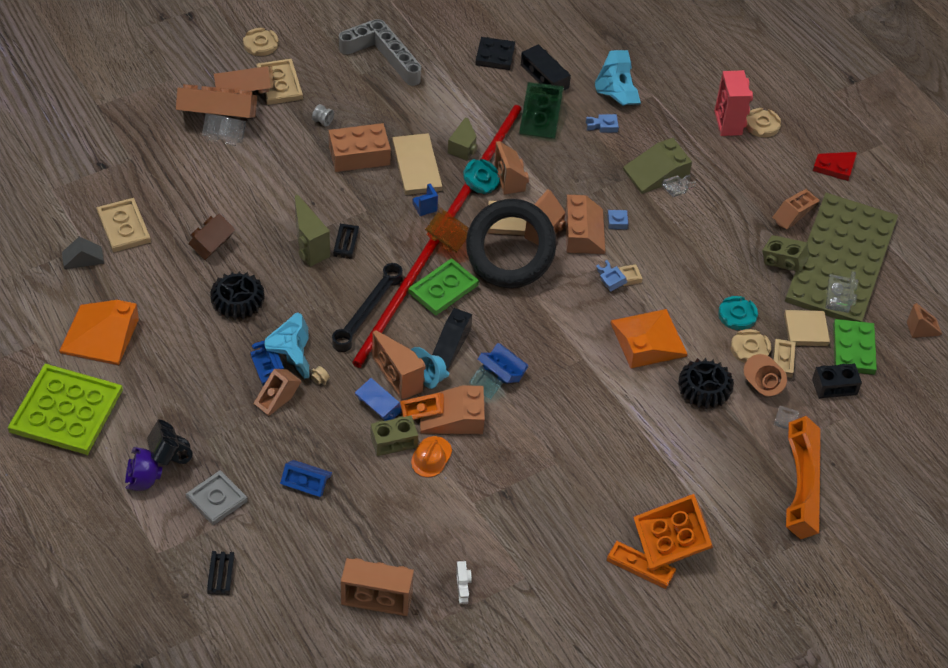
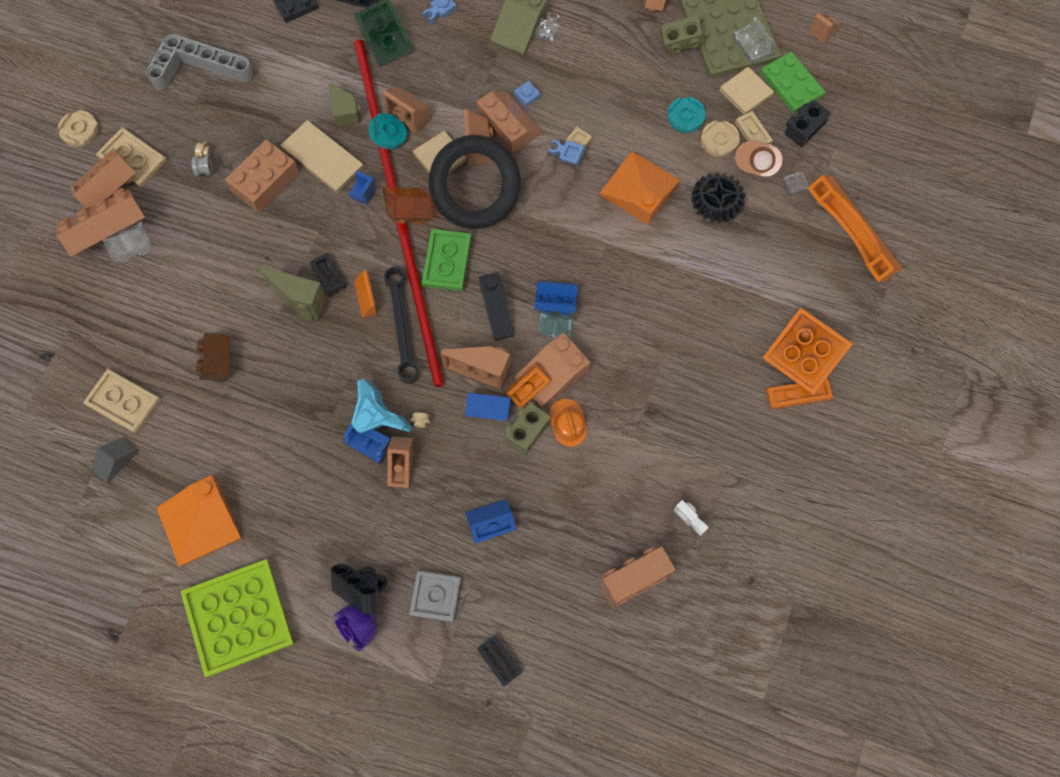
camera: 35 degrees left, 20 degrees up
(237, 295) = (303, 393): black gear -> none
(334, 105) = (202, 150): none -> tan plate
(361, 270) = (365, 295): none -> orange slope
(435, 367) = (507, 341): medium azure piece -> none

